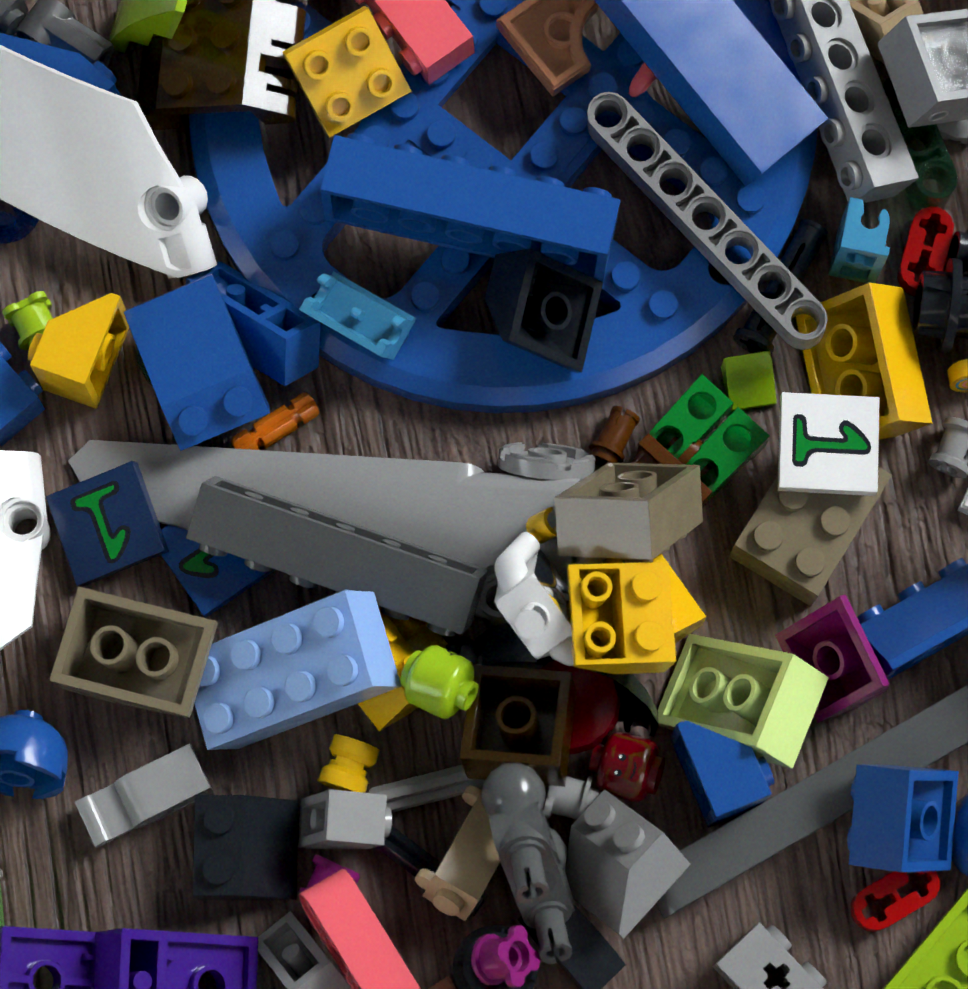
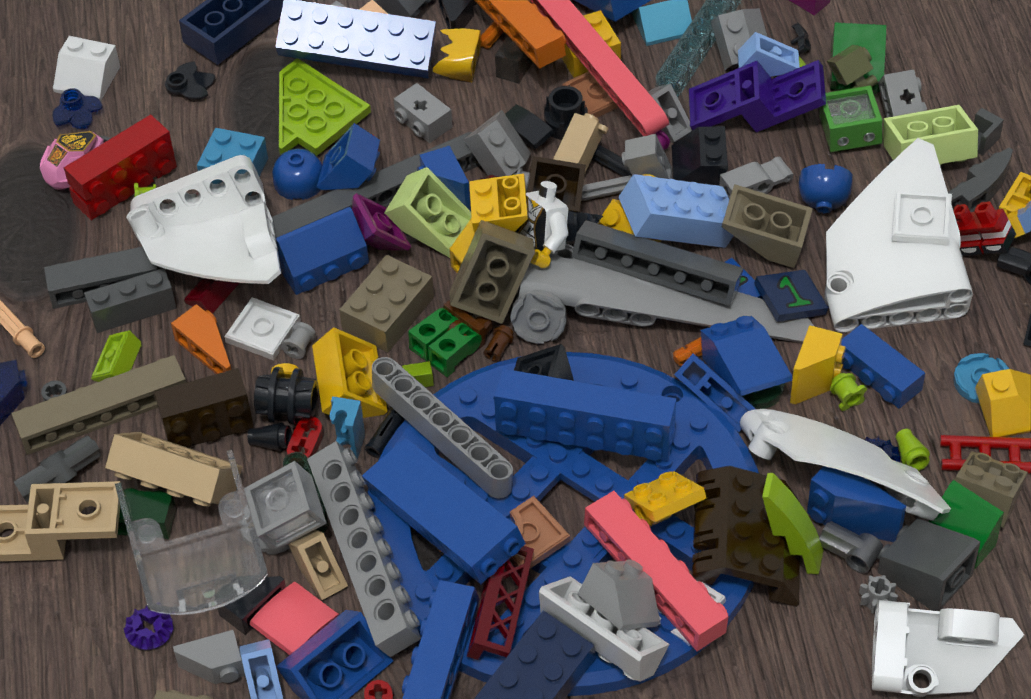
camera: 175 degrees left, 25 degrees down
(359, 315) = (651, 371): dark azure hinge -> none
(439, 681) = (597, 195): lime head -> none
(504, 958) = (561, 88): magenta brick -> none
(530, 855) = (548, 124): dark grey piece -> none
(828, 444) = (375, 313): white tile -> none

